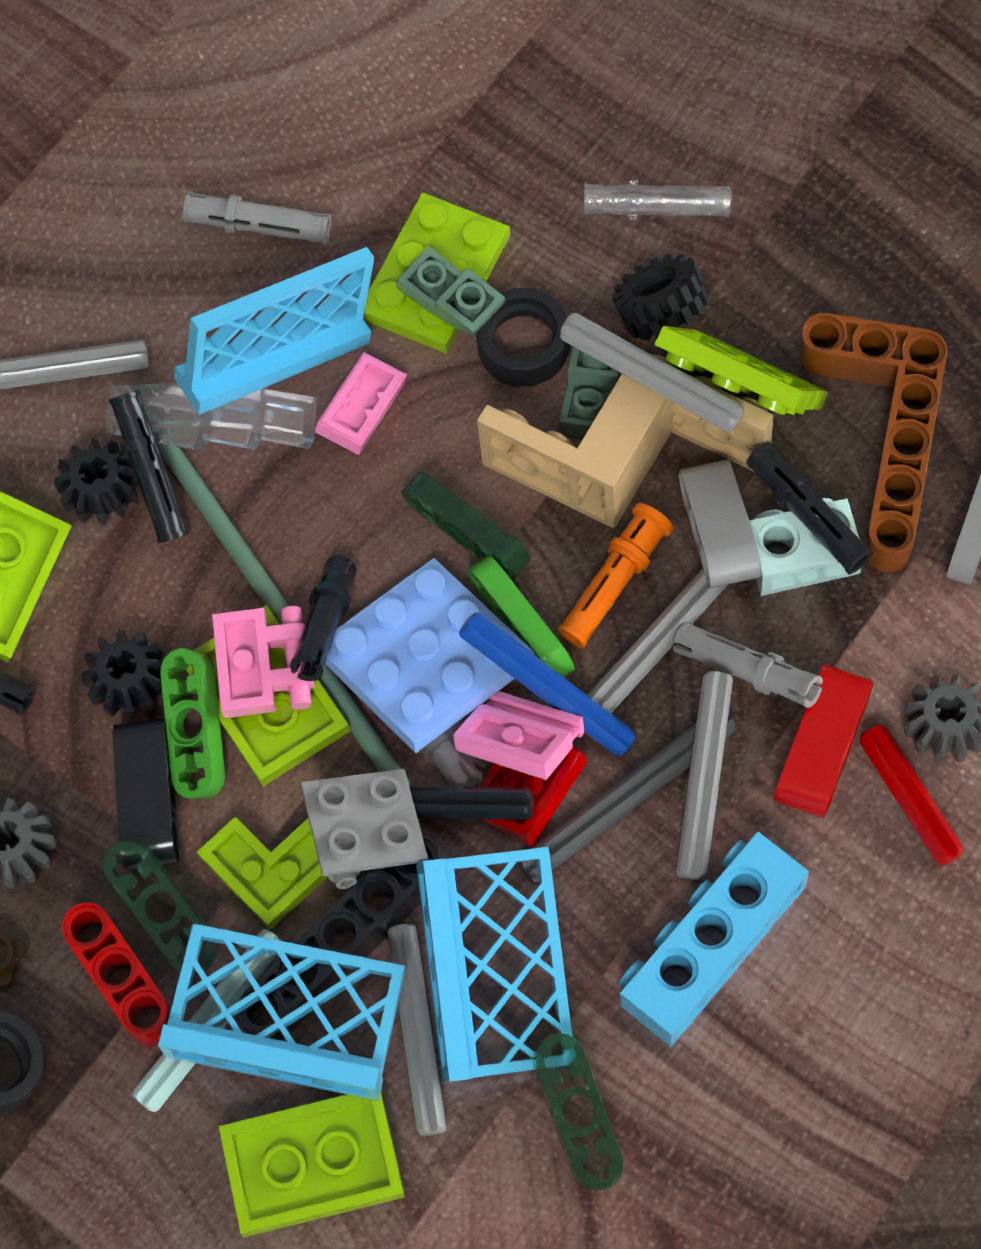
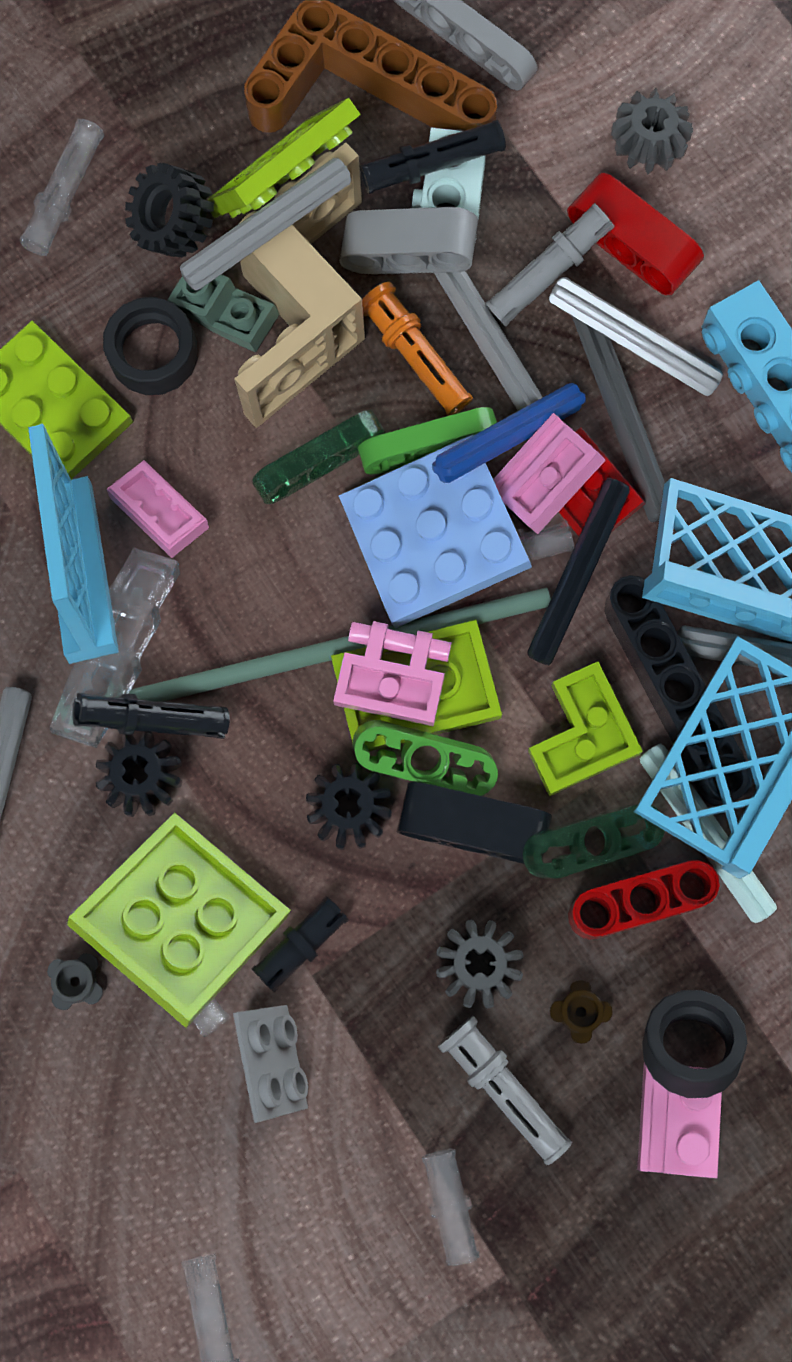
camera: 75 degrees left, 10 degrees up
(326, 607) = (354, 597): black pin -> none
(363, 824) = (589, 630): light grey hinge -> none
(448, 293) = (88, 388): sand green slope -> none
(911, 795) = (706, 186): red axle -> none

